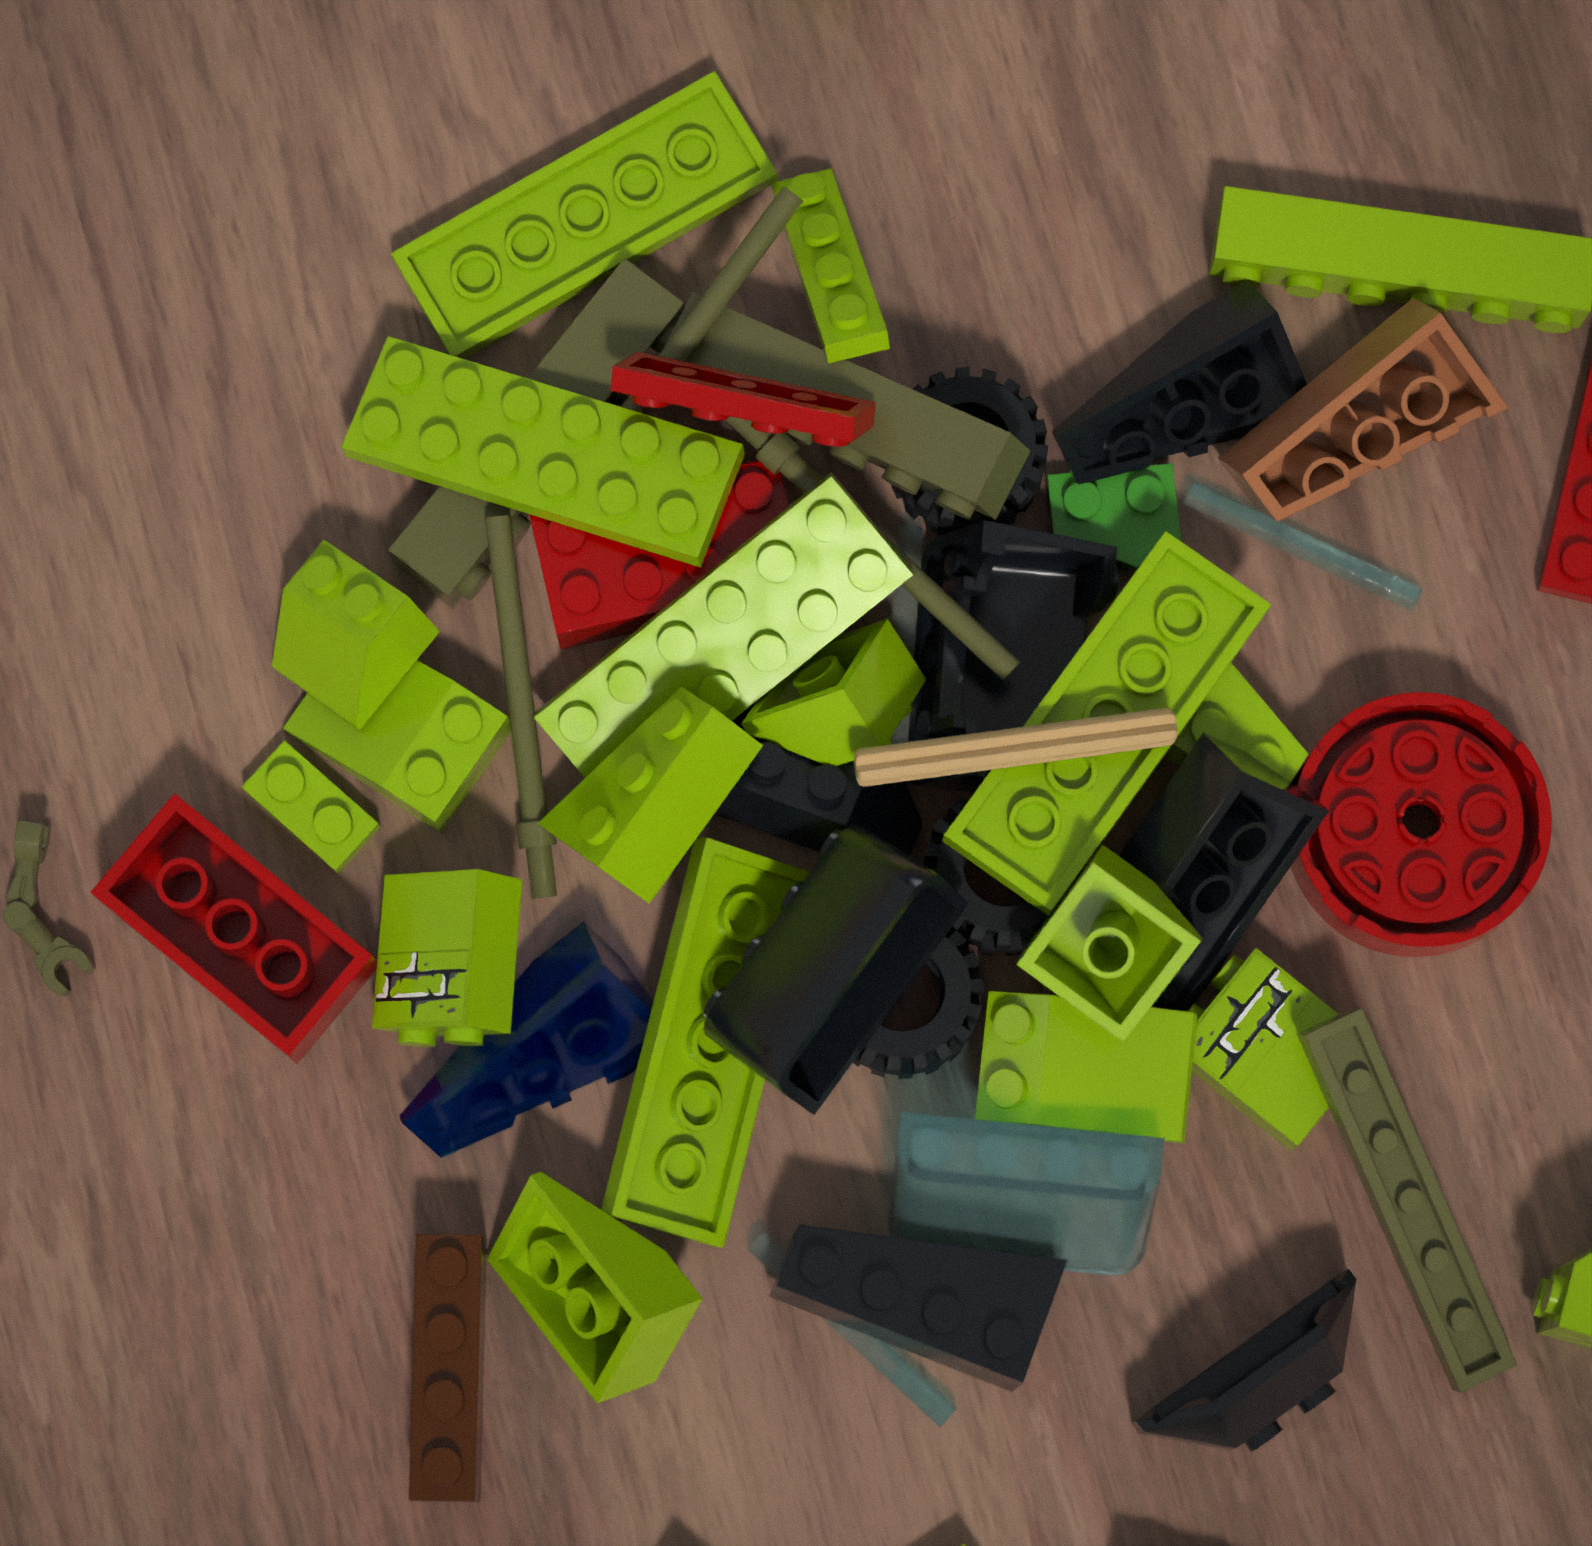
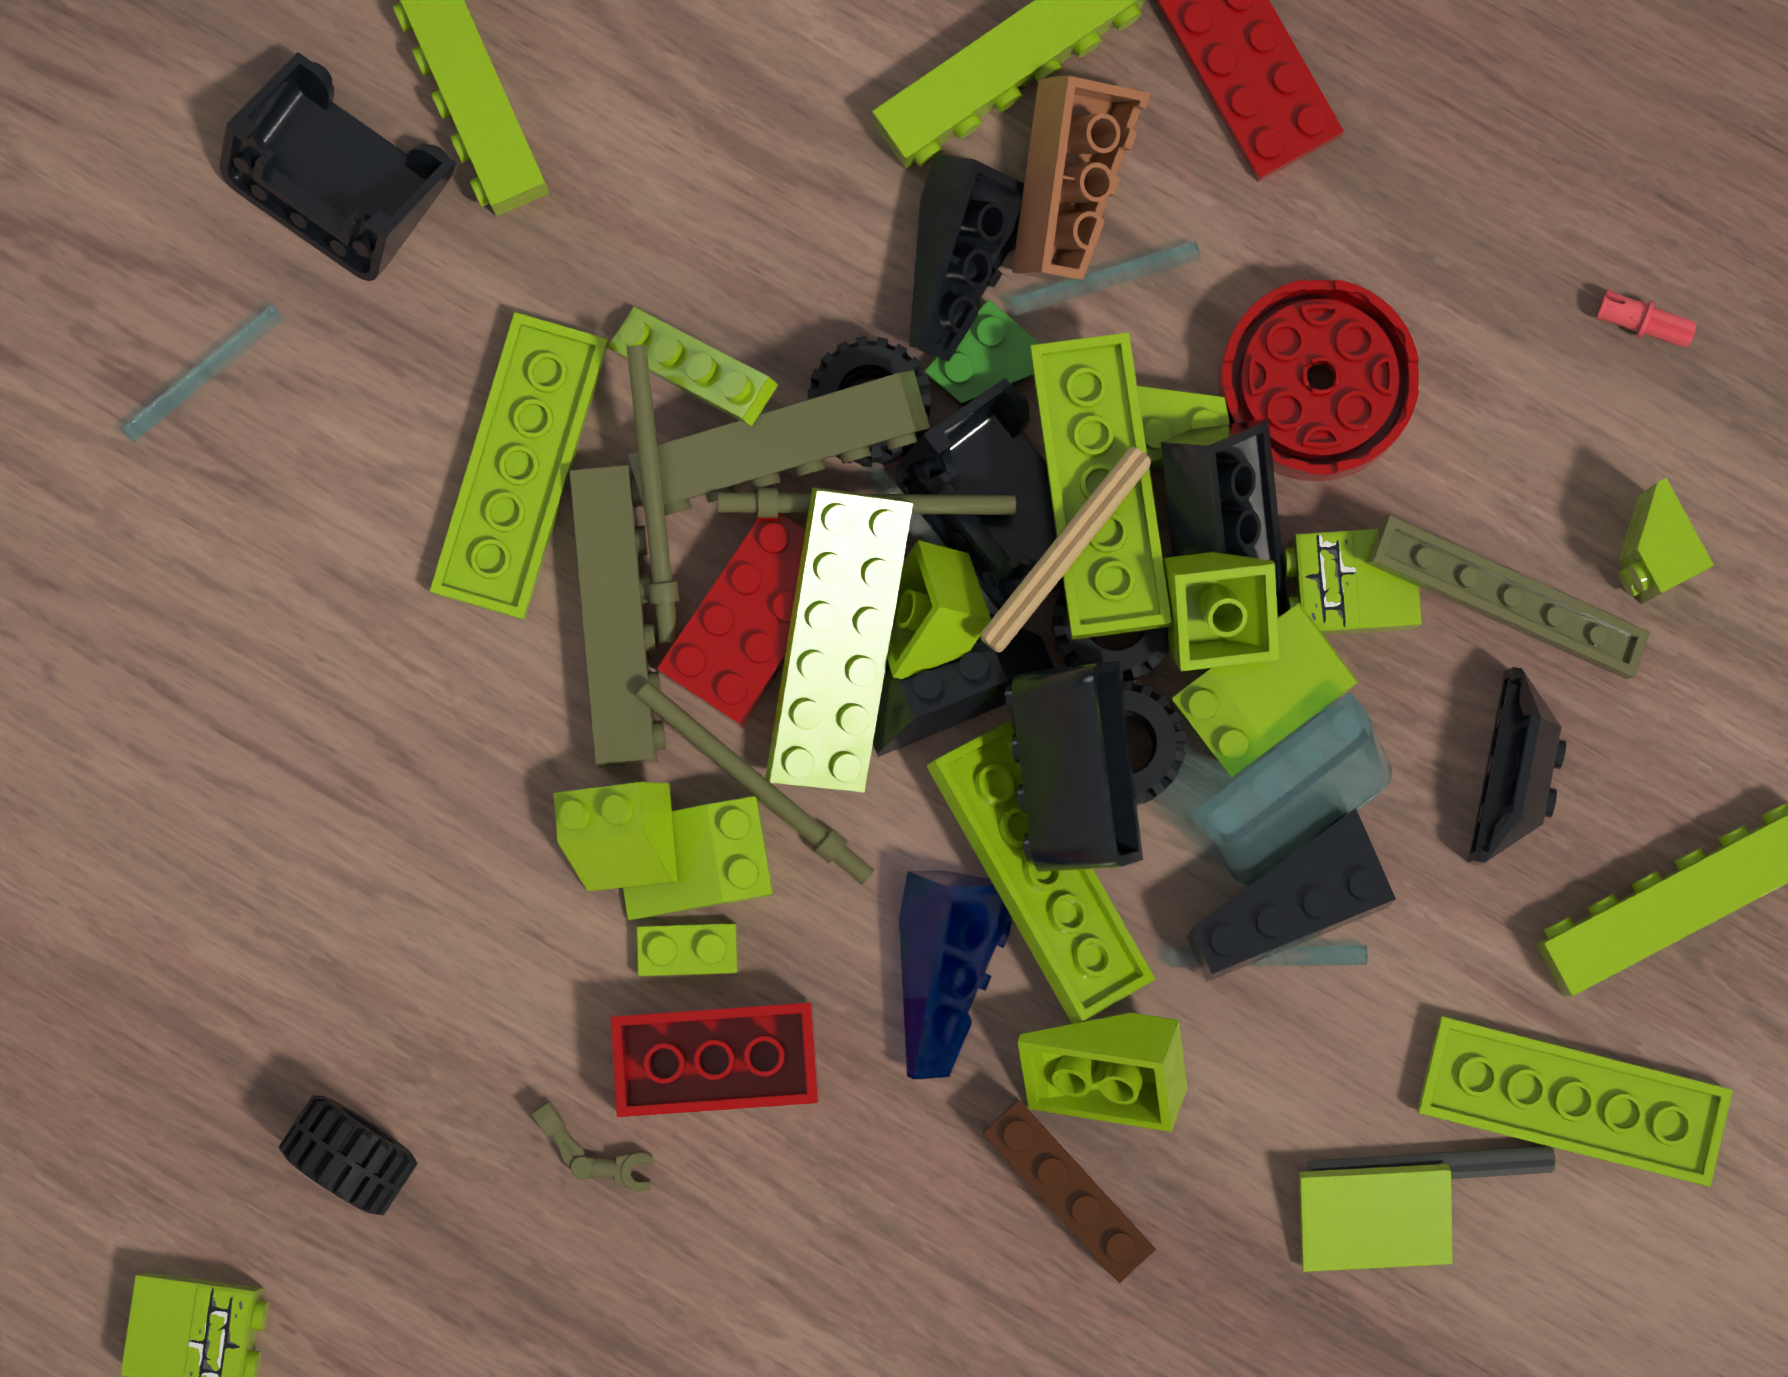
camera: 40 degrees left, 5 degrees up
(447, 956) = (850, 963): lime brick -> none
(544, 451) = (632, 625): lime plate -> none
(654, 793) = (882, 763): lime wedge -> none
(722, 393) = (711, 497): red plate -> none

